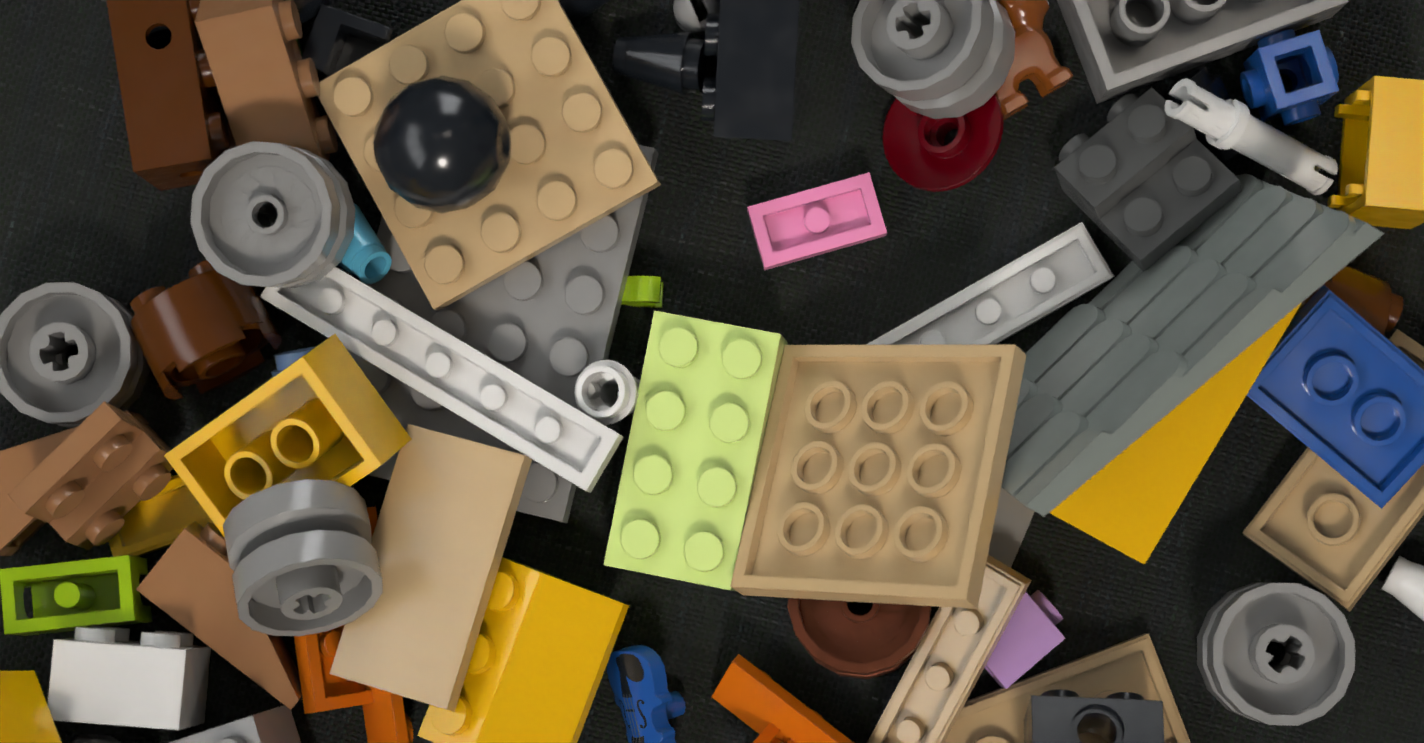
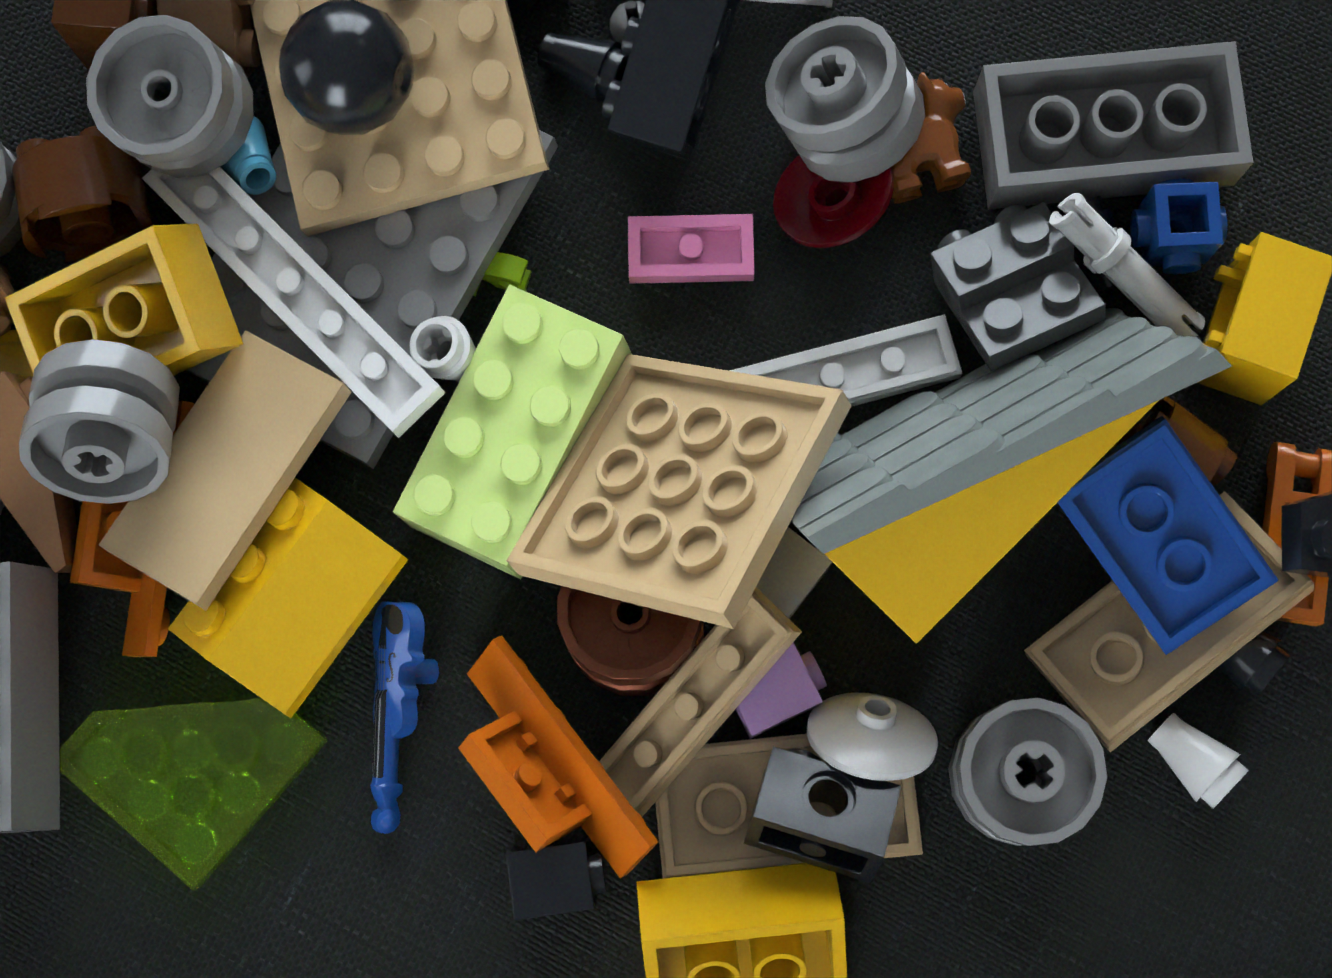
camera: 15 degrees right, 5 degrees down
(1120, 657) = (872, 736): none -> white dish

